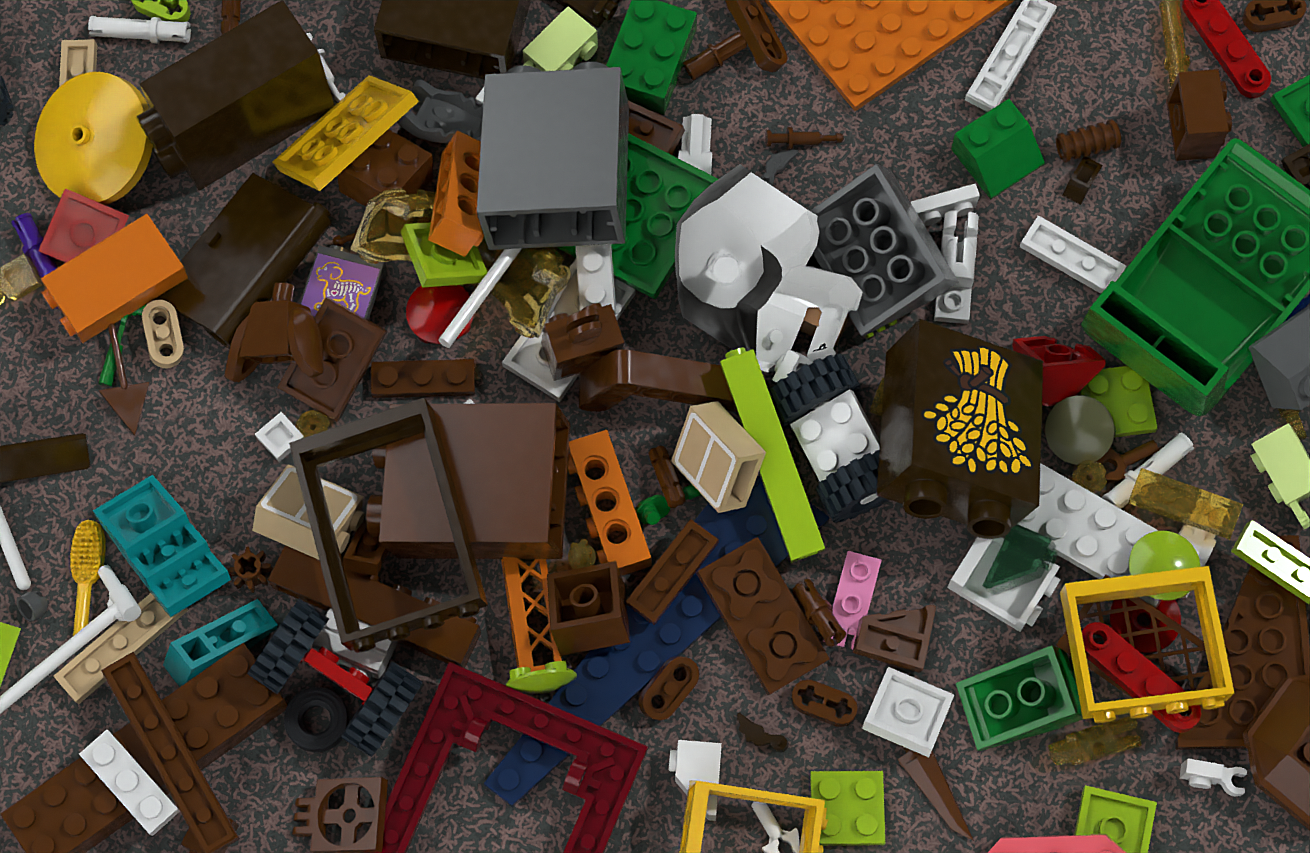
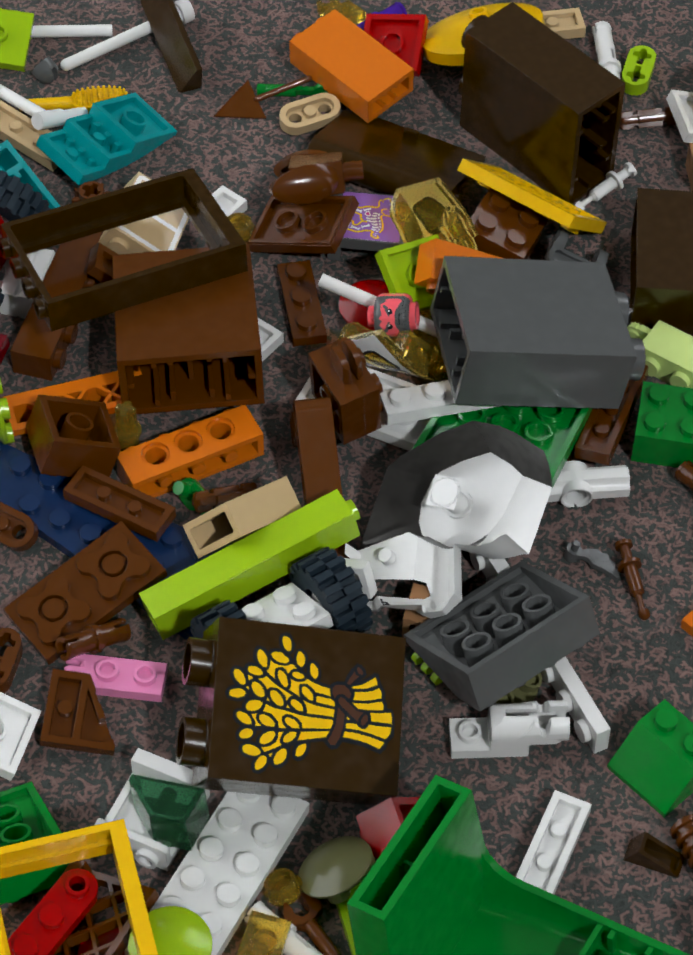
camera: 80 degrees right, 20 degrees down
(505, 280) = (394, 313): none -> head

